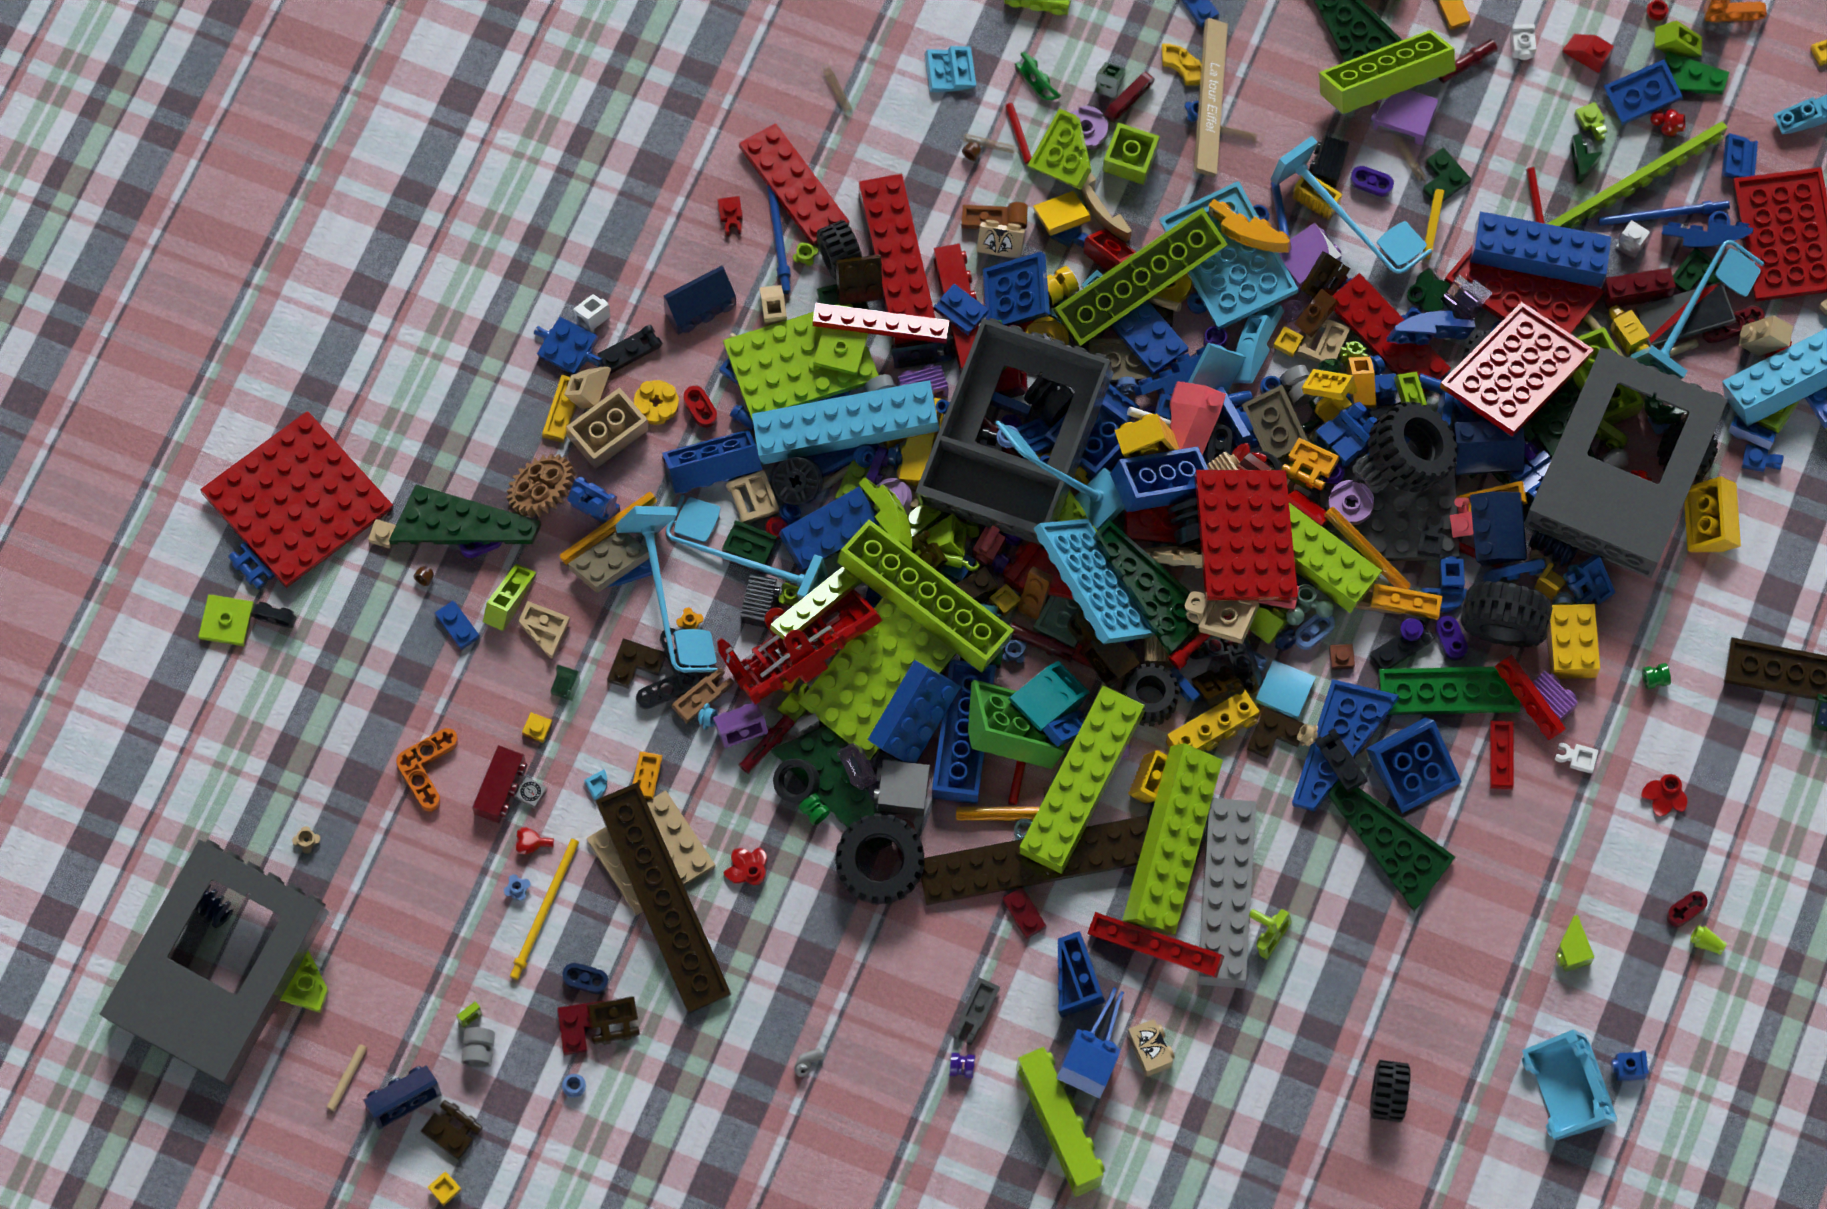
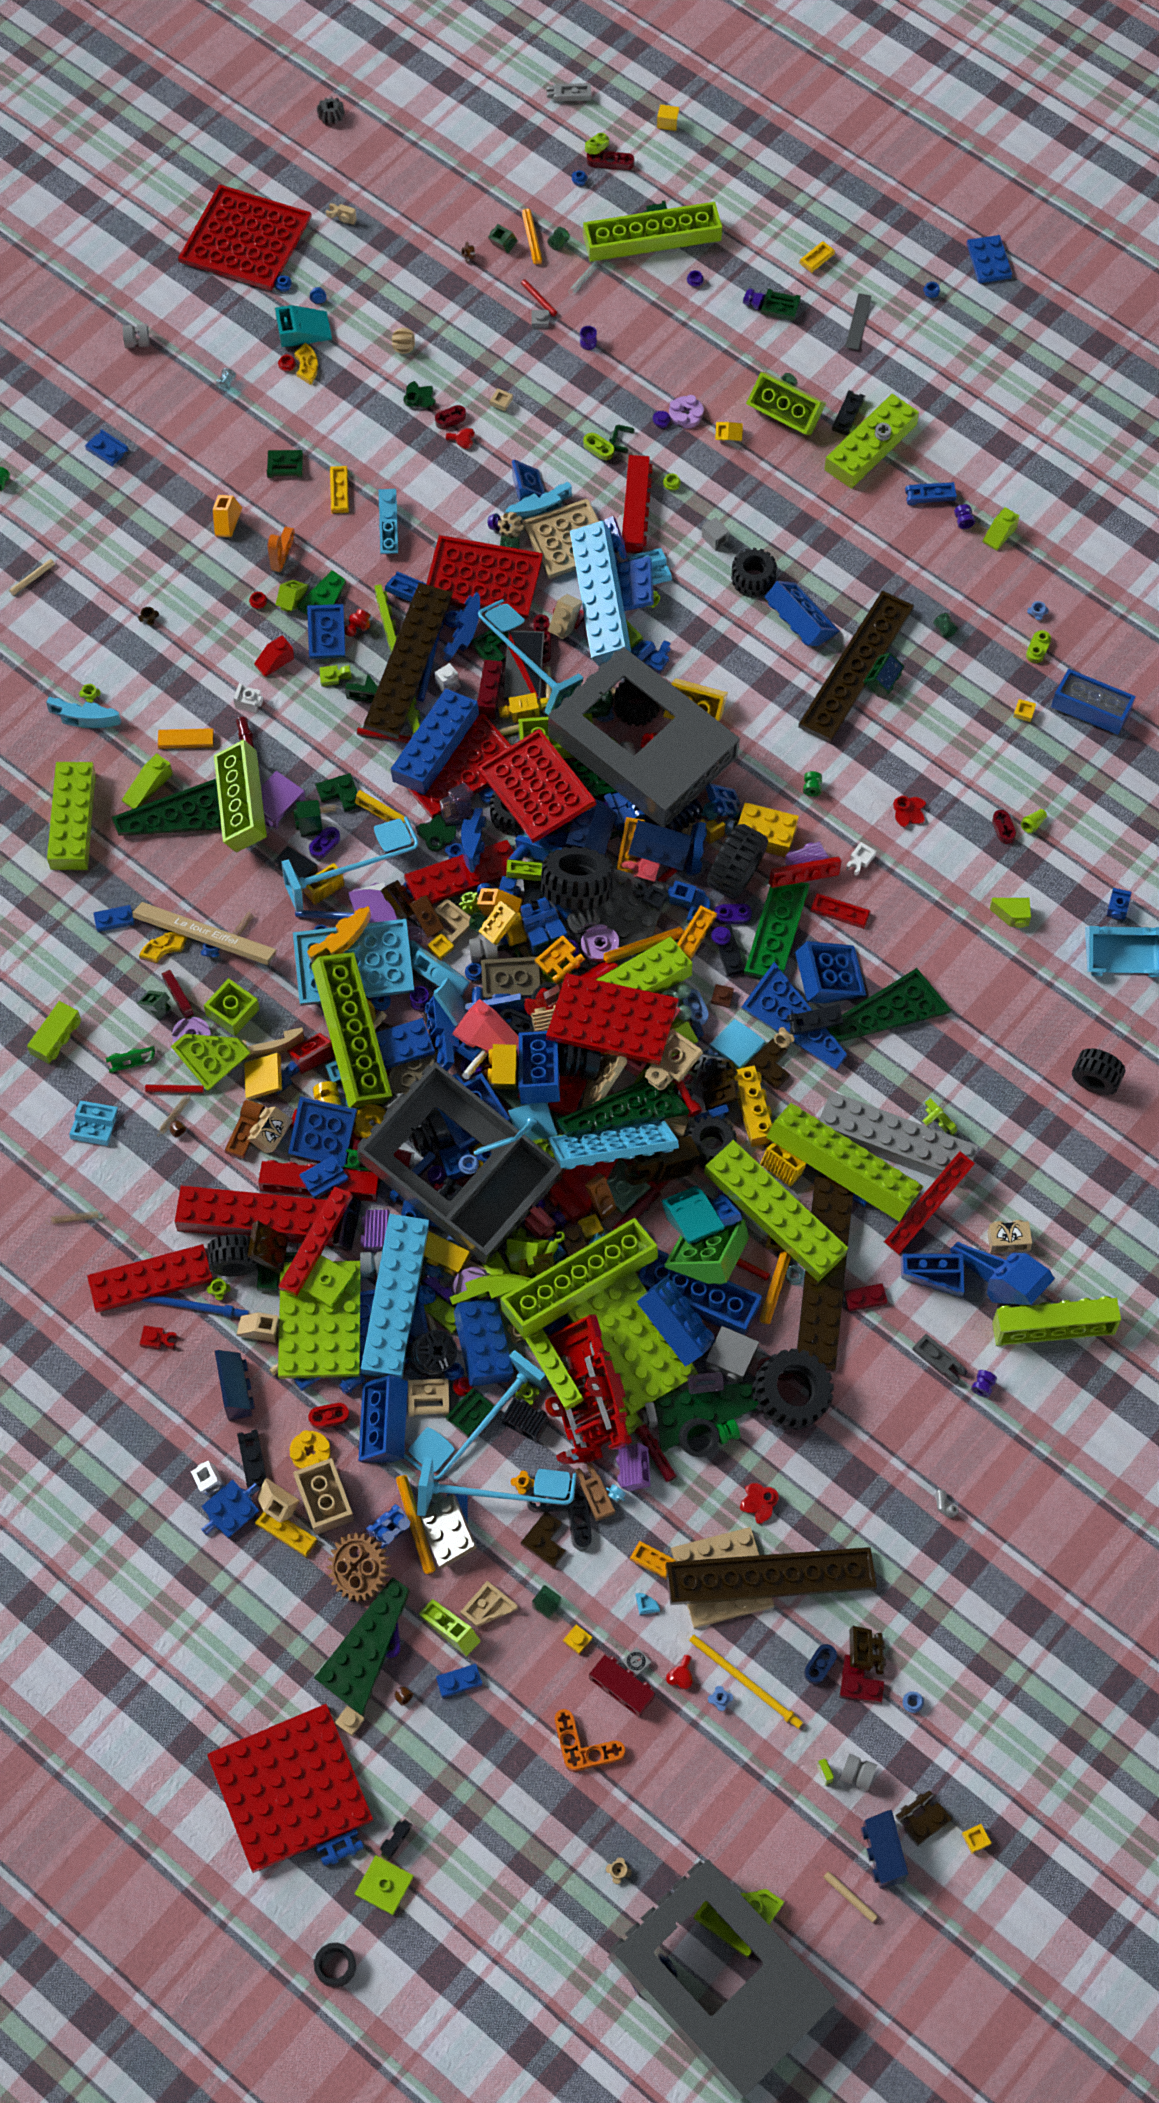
camera: 70 degrees left, 5 degrees down
(133, 582) = (321, 1954): none -> black tyre
(1391, 152) = (308, 818): none -> dark green brick
(1637, 187) = (408, 660): none -> dark brown plate

